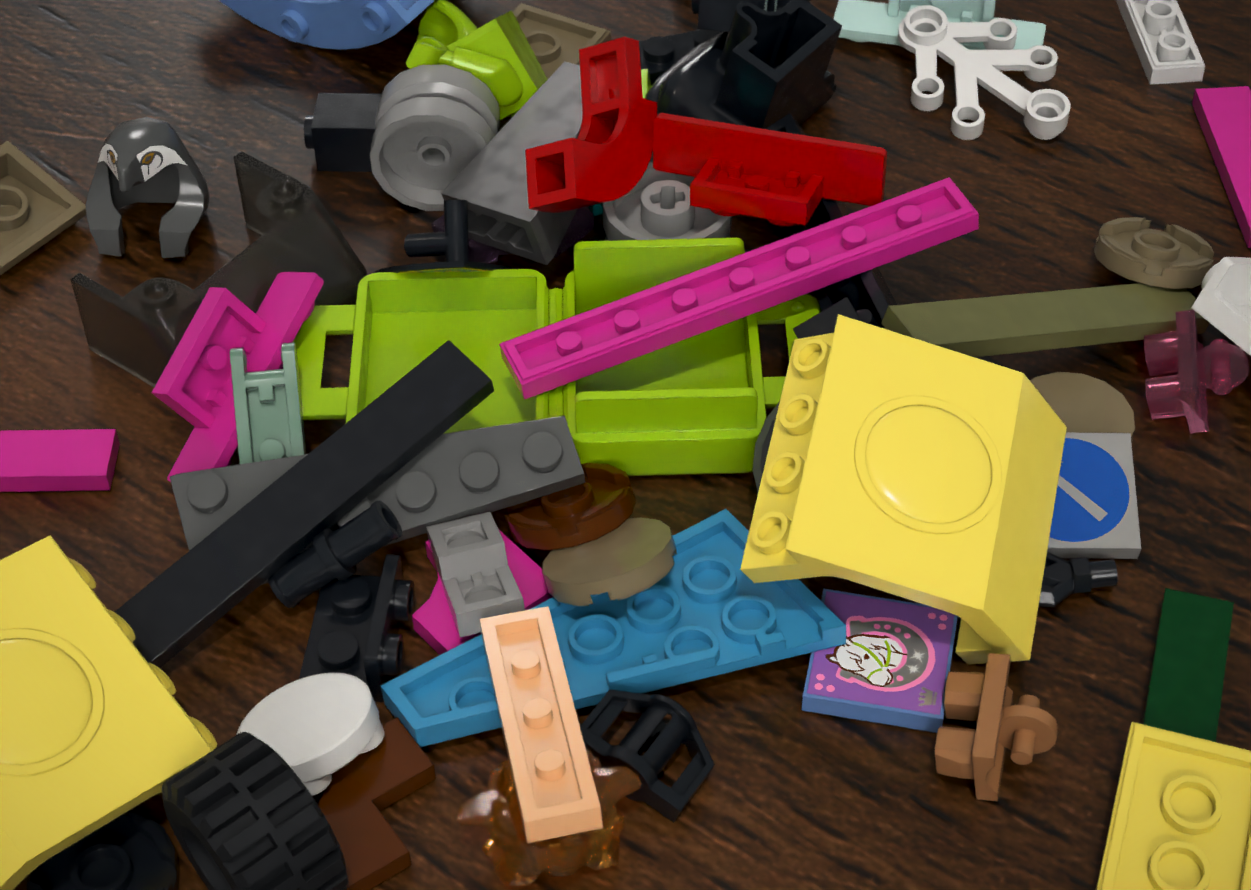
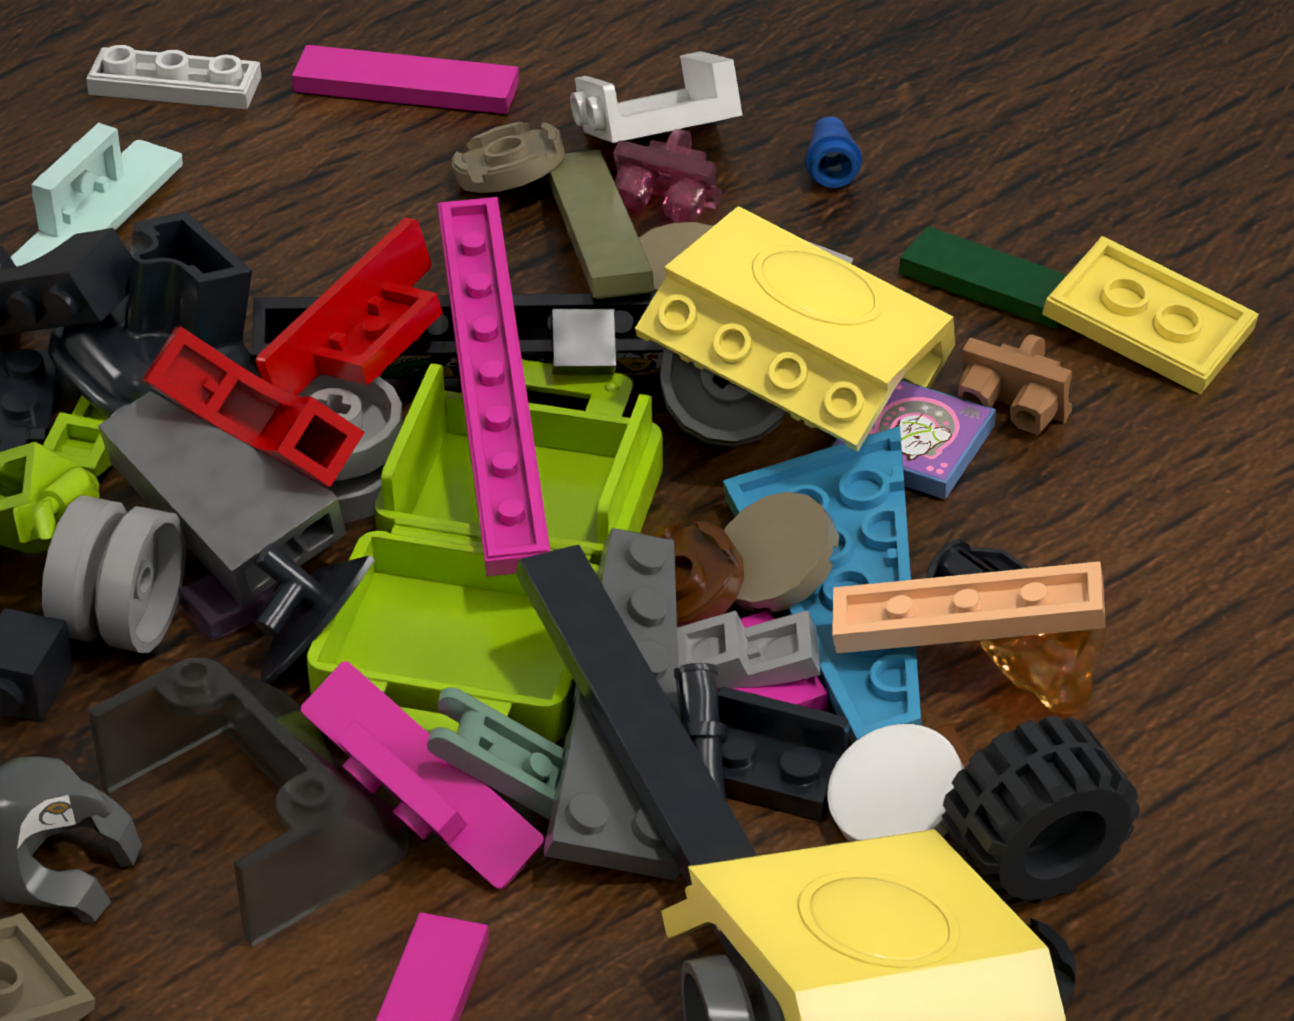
camera: 75 degrees left, 5 degrees down
(931, 34) = (122, 204): white plant -> none

